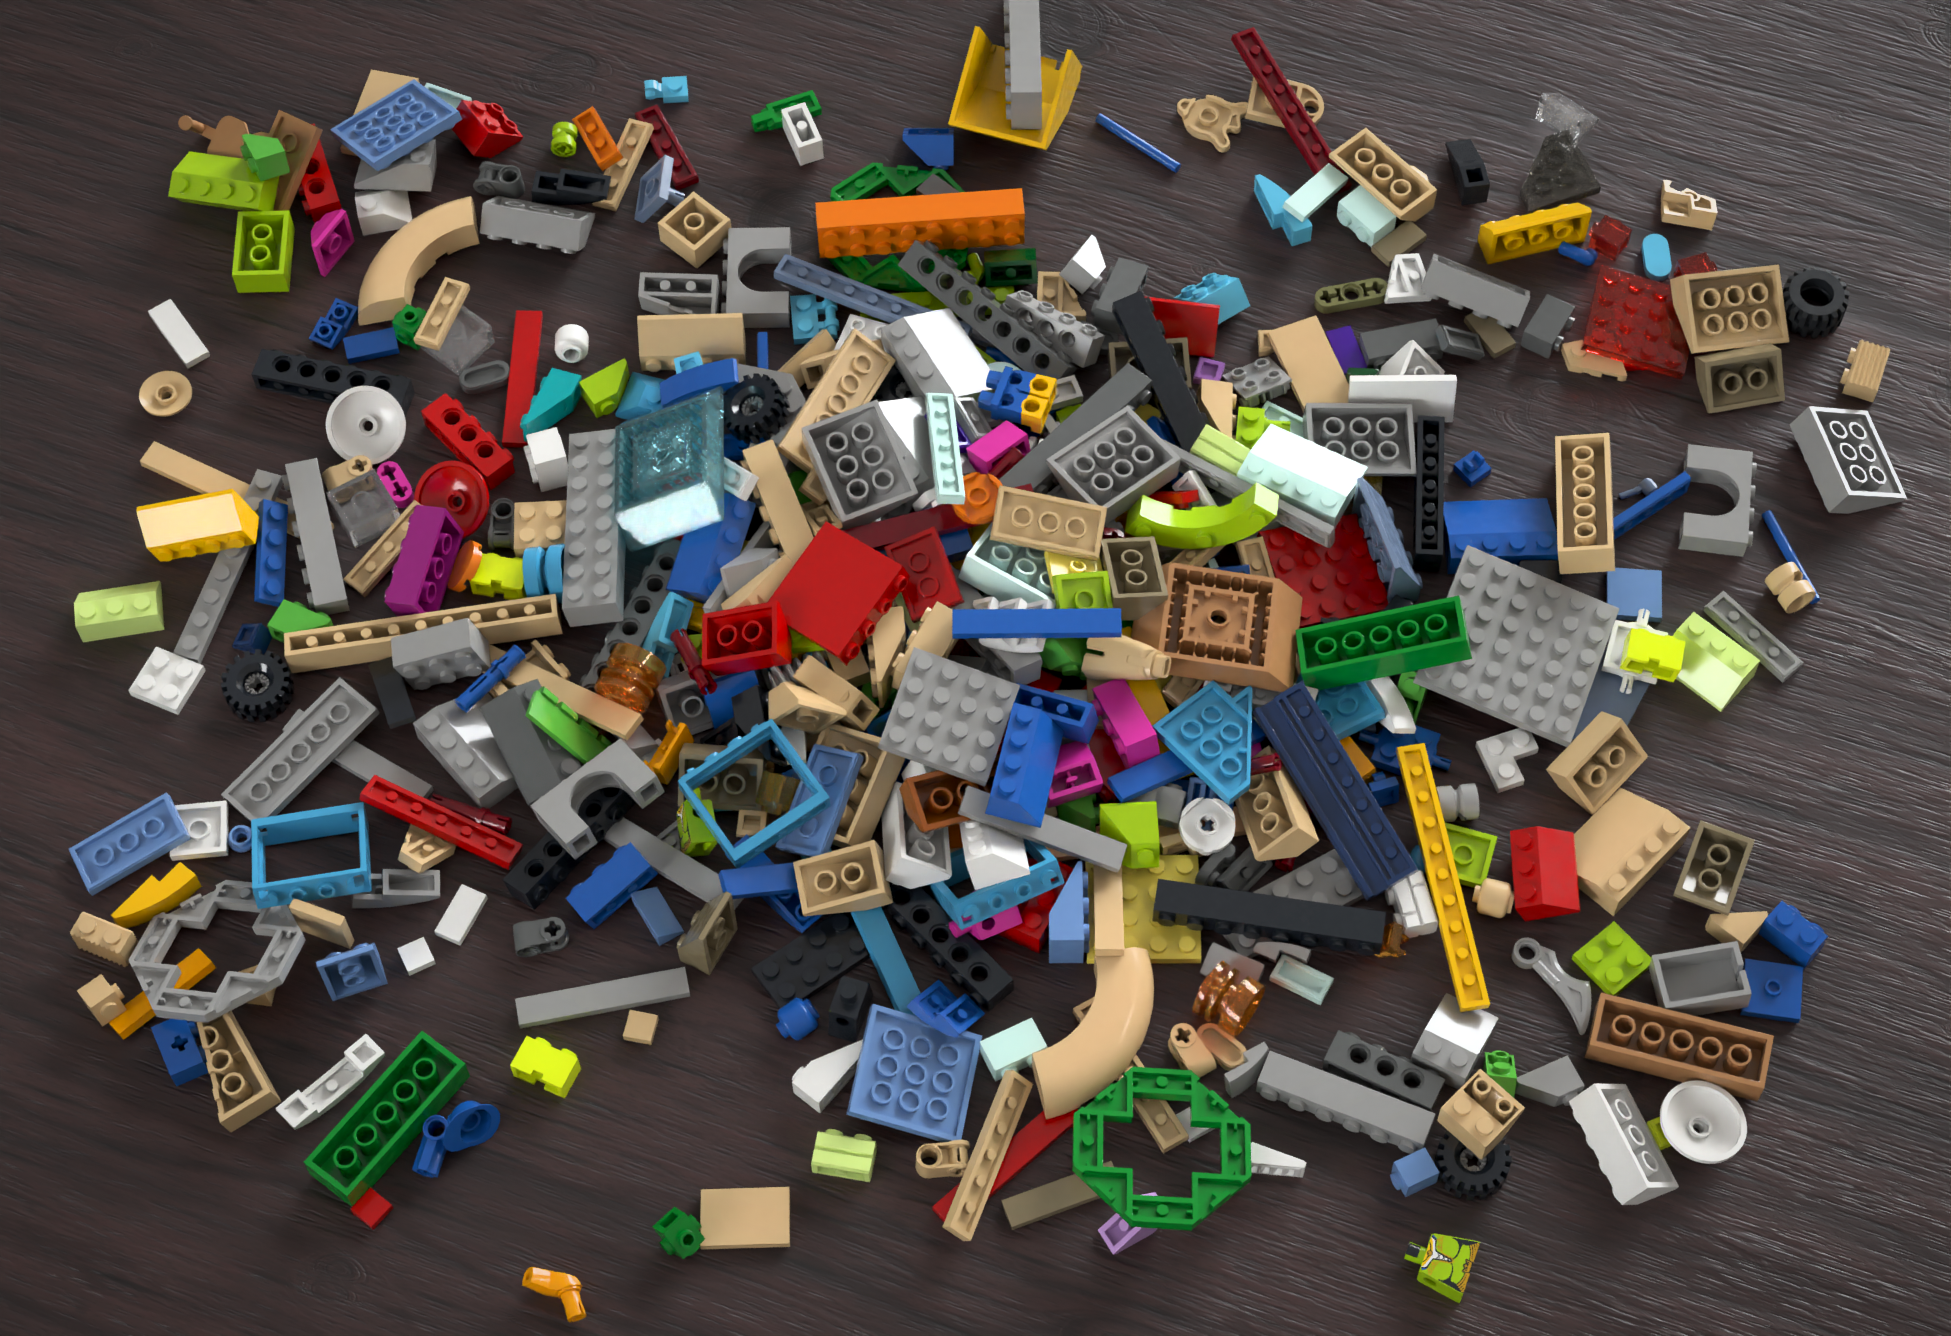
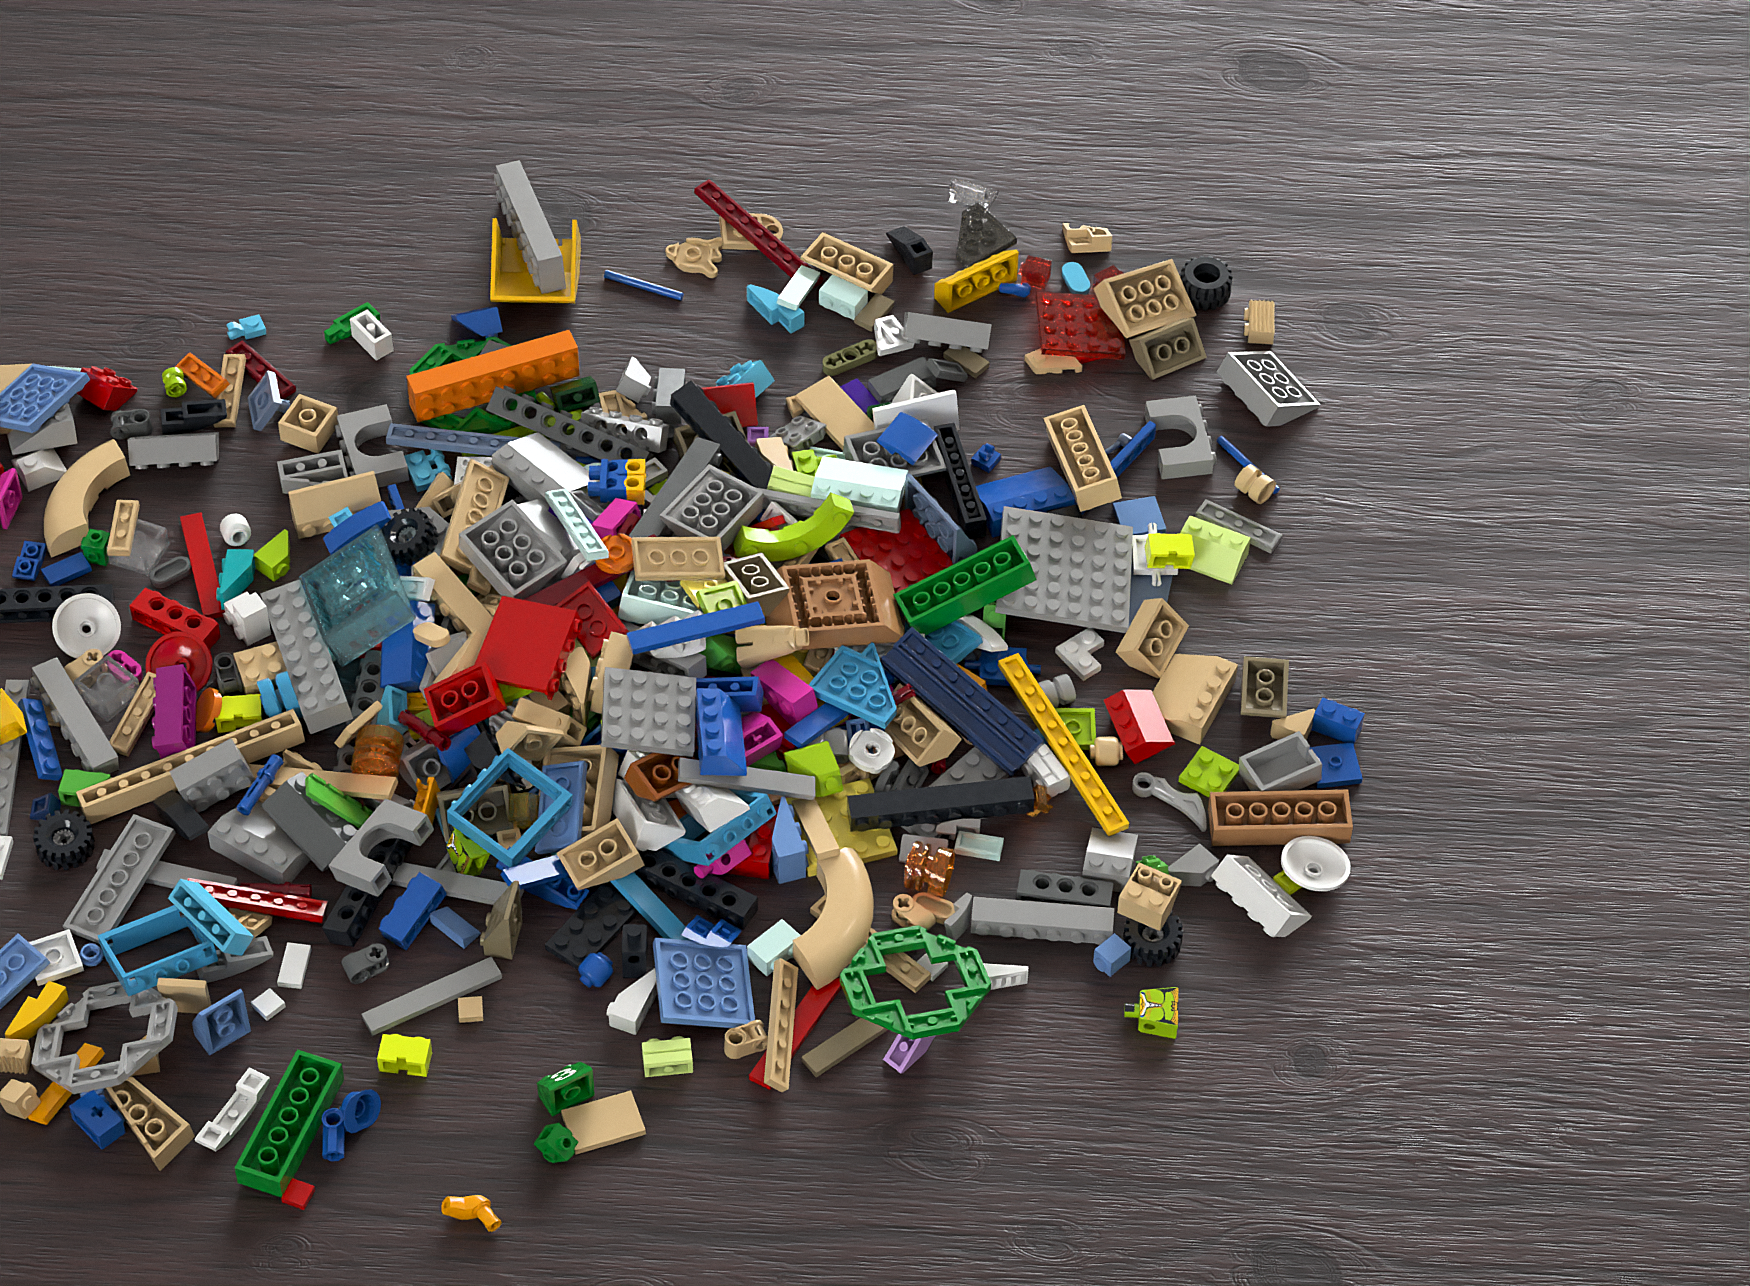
camera: 20 degrees left, 10 degrees down
(375, 837) = (210, 917): none -> medium azure brick
(620, 635) = (361, 721): none -> tan tile
(639, 396) = (306, 555): dark azure slope -> none
(714, 1163) = (566, 1087): none -> green slope
(735, 545) = (431, 634): none -> tan tile
(1379, 424) = (907, 437): none -> blue slope
(1384, 790) = (999, 693): blue tile -> none
(1548, 326) = (1010, 344): dark grey brick -> none

